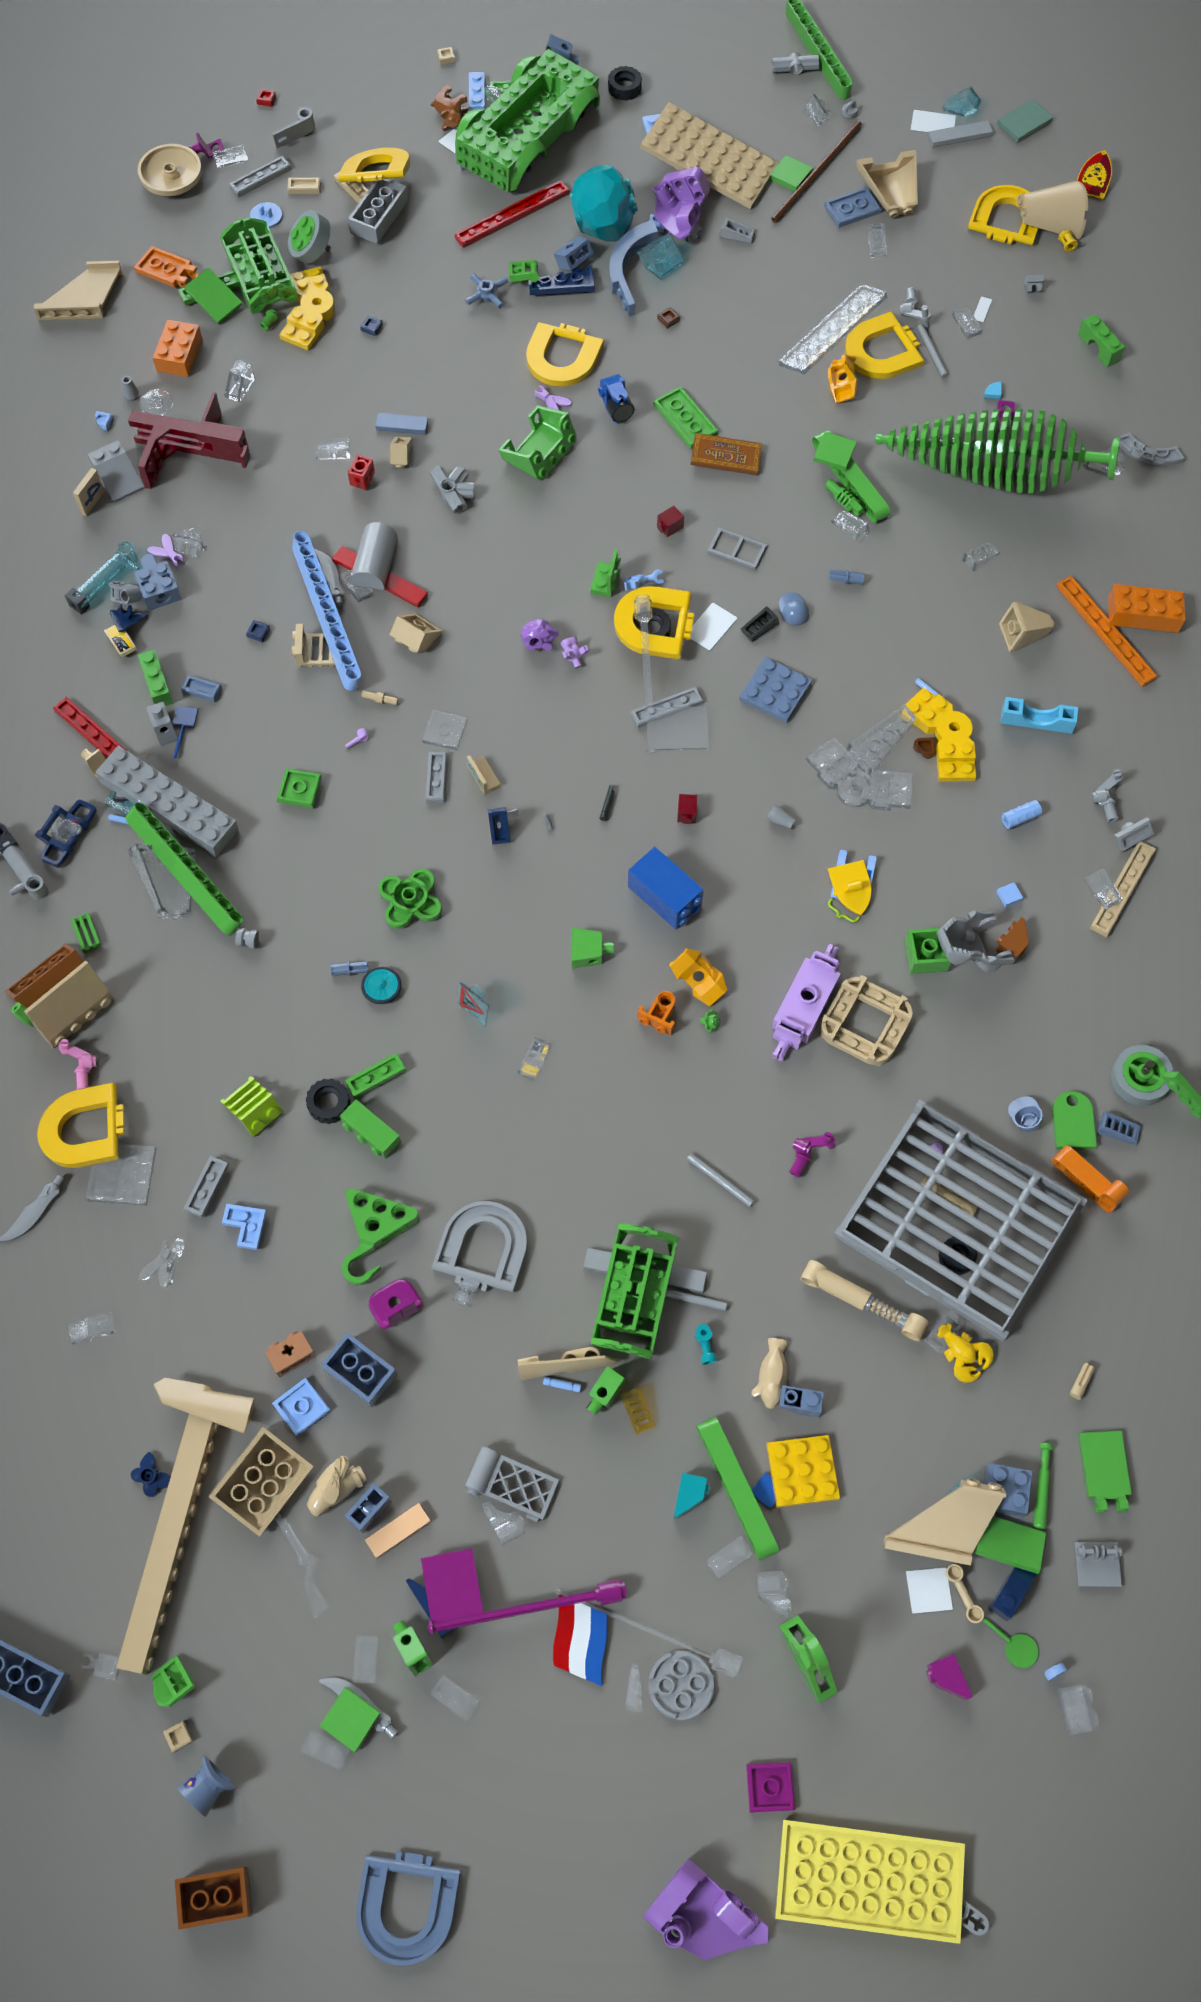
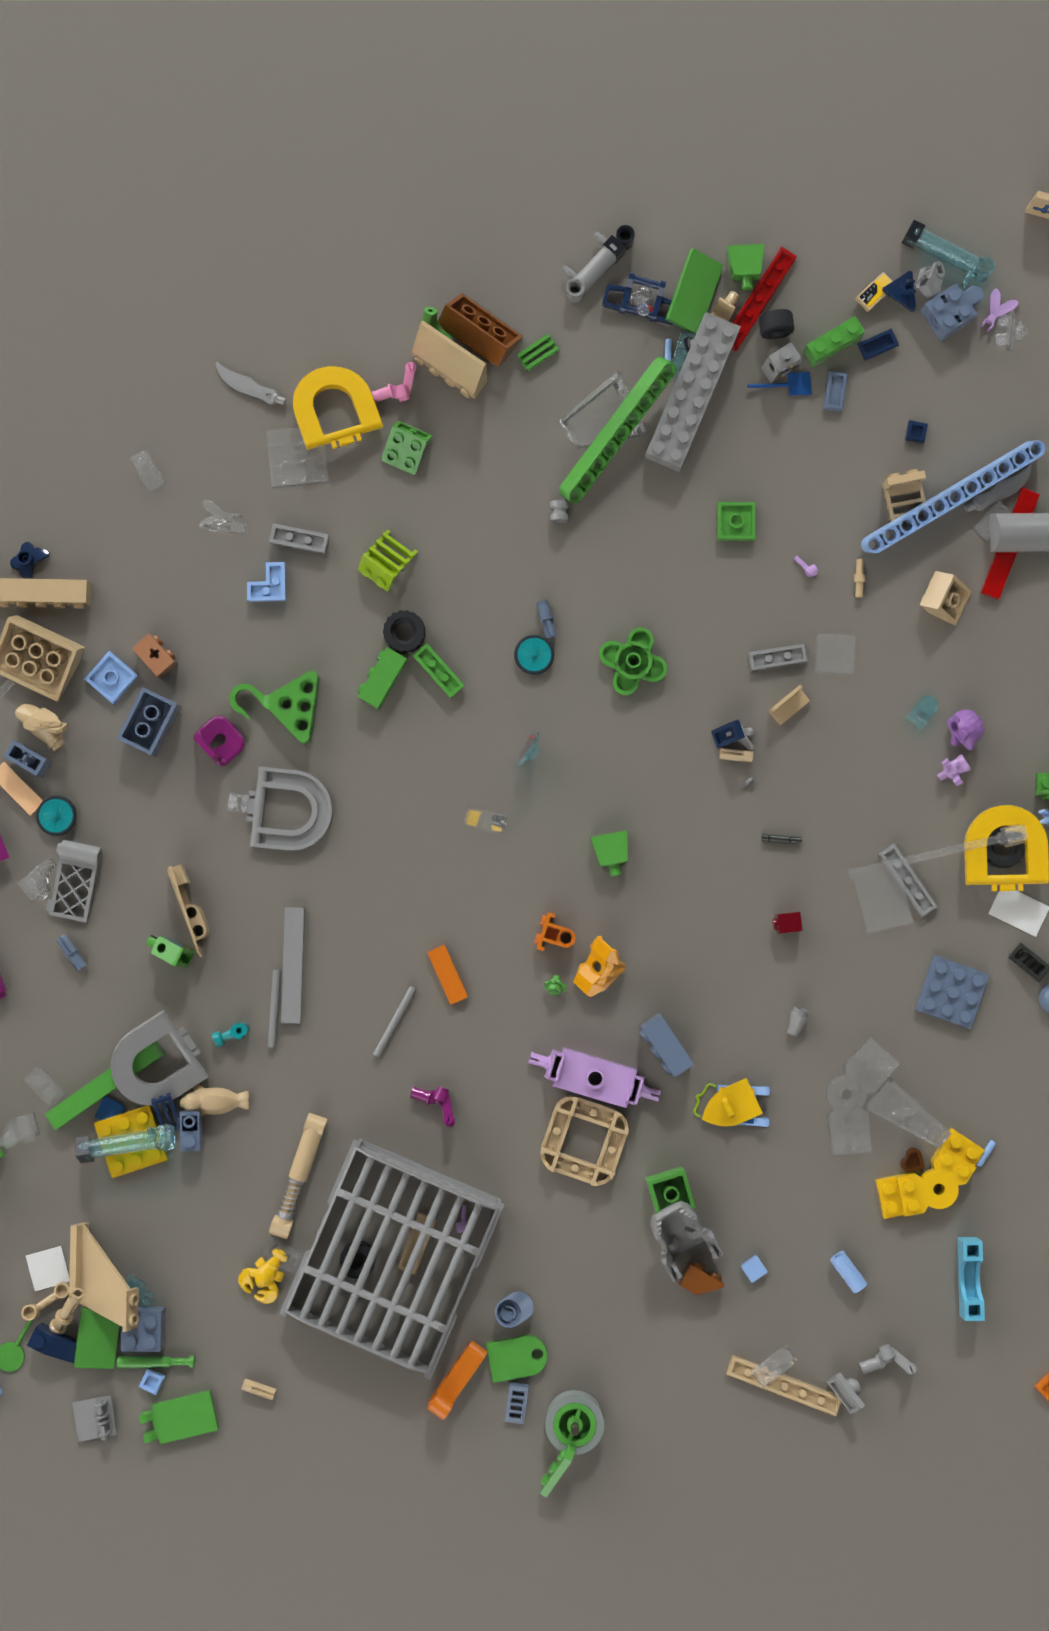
camera: 80 degrees right, 20 degrees up
(59, 738) = (745, 263): none -> bright green torso
(71, 784) = (694, 291): none -> bright green tile
(124, 721) = (776, 324): none -> black tyre
(144, 1067) = (405, 447): none -> bright green bracket
(169, 647) = (878, 344): none -> dark blue tile
(201, 1401) = (95, 586): tan panel -> none
(436, 1492) = (56, 815): none -> teal wheel
(510, 665) = (926, 706): none -> clear light blue plate
(520, 826) = (736, 755): none -> tan piece
(561, 1384) = (172, 909): light blue wheel -> none
(589, 1500) = (71, 952): none -> sand blue axle
(628, 1312) = (284, 960): bright green piece -> none
(637, 1391) = (171, 974): clear yellow slope -> none
(665, 888) = (688, 917): blue brick -> none
(681, 1120) = (447, 974): none -> orange tile
(690, 1494) = (91, 1043): teal slope -> none
(699, 1441) = (140, 1038): none -> light grey piece
(779, 1416) = (162, 1100): none -> dark blue tile
(785, 928) = (665, 1045): none -> sand blue brick
(804, 1430) = (159, 1138): none -> clear light blue piece
(982, 1572) = (64, 1316): none -> tan pin
(1063, 1494) = (152, 1381): none -> light blue tile

